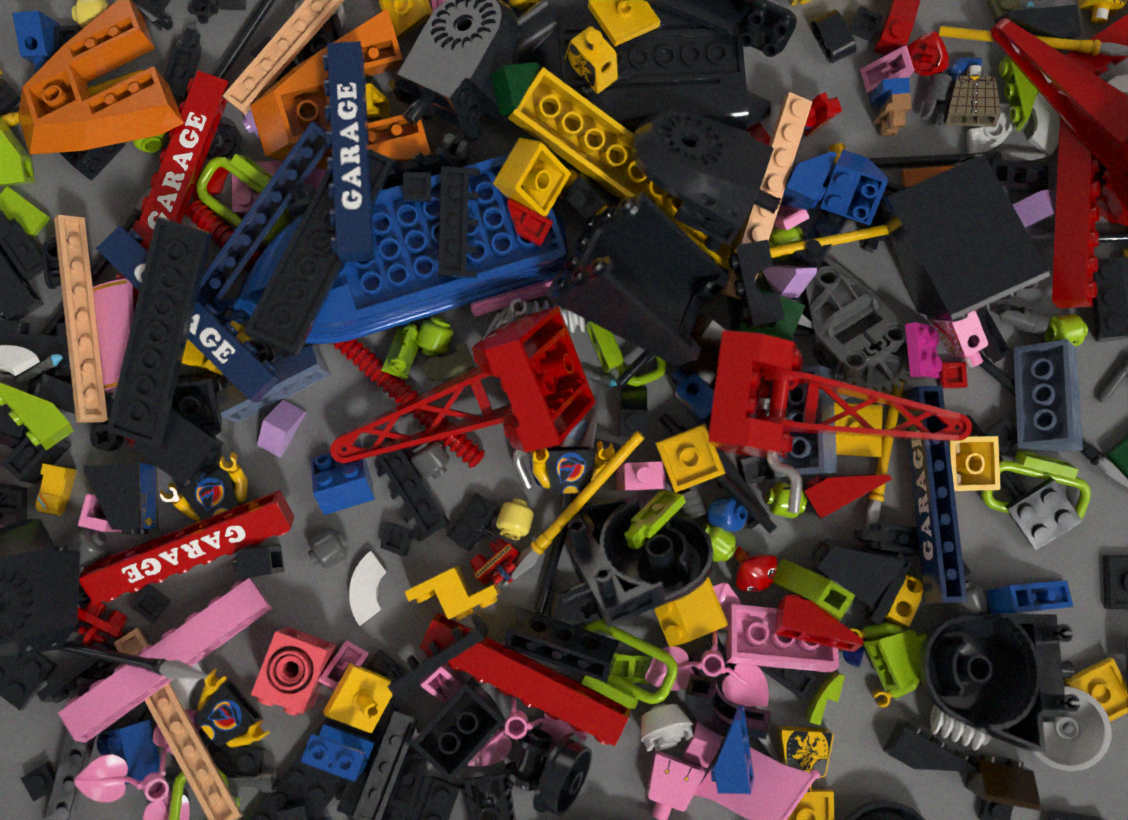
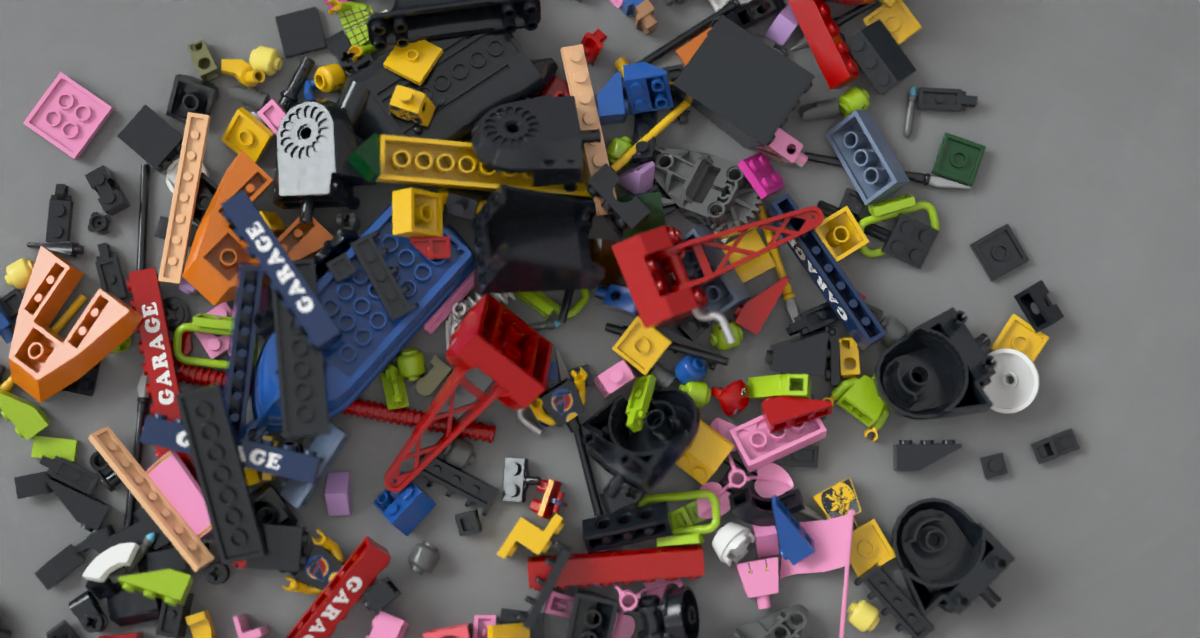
camera: 30 degrees left, 0 degrees up
(126, 495) = (258, 603): black slope -> none
(364, 588) = (465, 570): white tile -> none
(514, 519) = (543, 460): light yellow head -> none
(530, 555) = (569, 479): yellow piece -> none
(632, 411) = (583, 336): black slope -> none
(789, 217) = (613, 134): bright pink tile -> none
(828, 689) = (831, 450): lime slope -> none
(854, 658) = (836, 416): clear blue hinge -> none
(941, 721) = (934, 424): white piece -> none
(953, 375) = (793, 178): red tile -> none
(997, 347) = (811, 140): black hinge -> none
(1003, 782) = (984, 442): dark brown slope -> none
(1029, 598) = (934, 303): blue slope -> none

